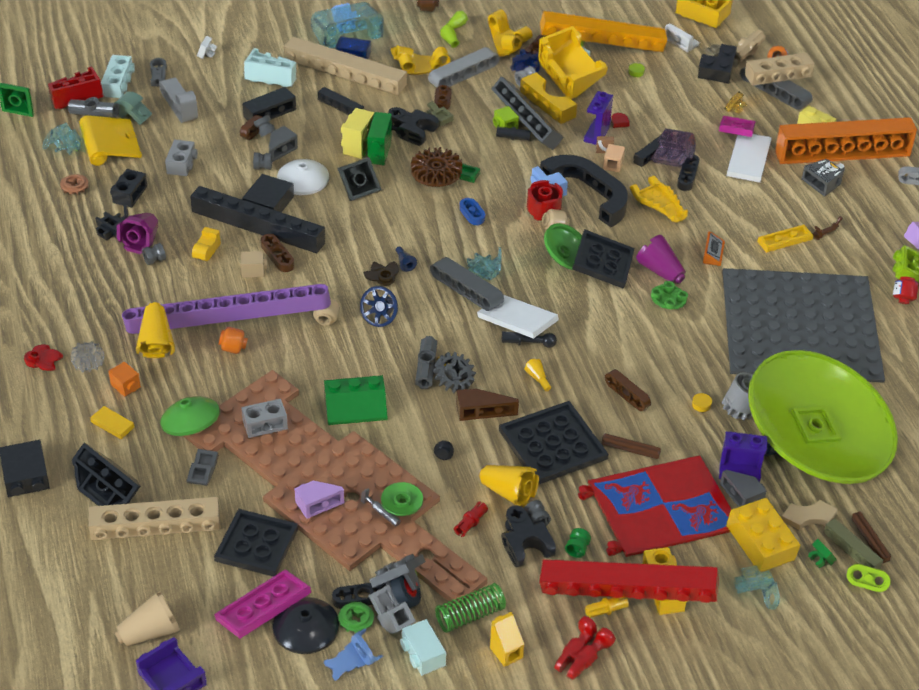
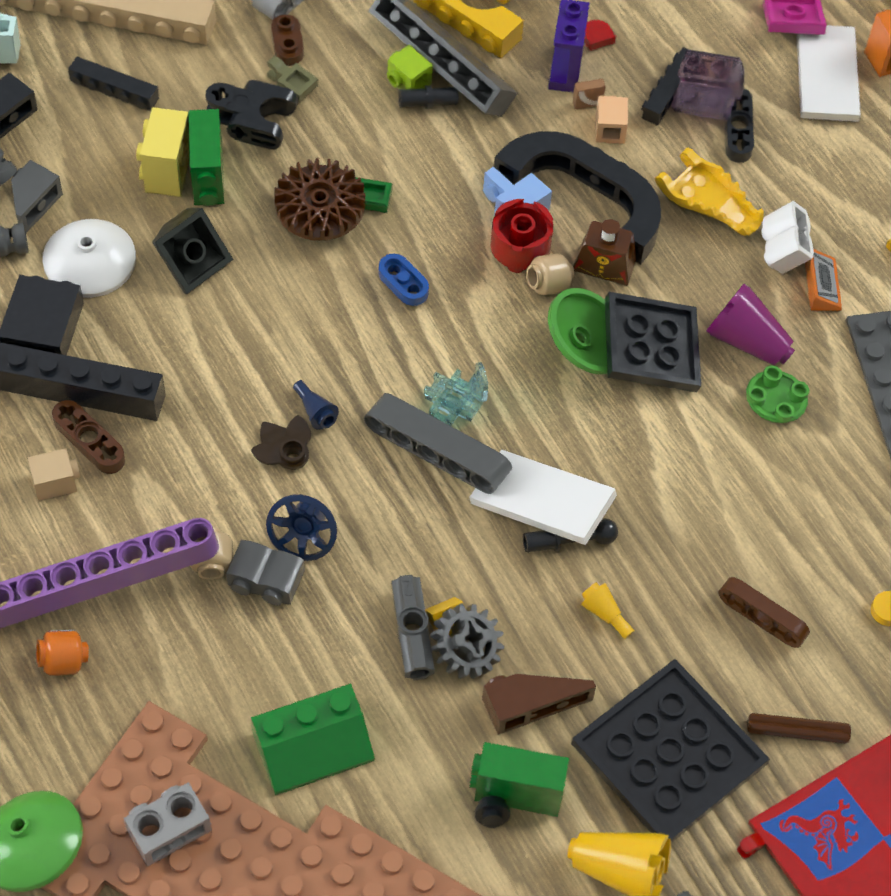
camera: 15 degrees left, 15 degrees up
(353, 325) = (265, 572): none -> dark grey brick
(465, 432) = (521, 777): none -> green brick
(590, 214) = (607, 252): none -> reddish brown torso
(697, 224) = (787, 237): none -> white brick

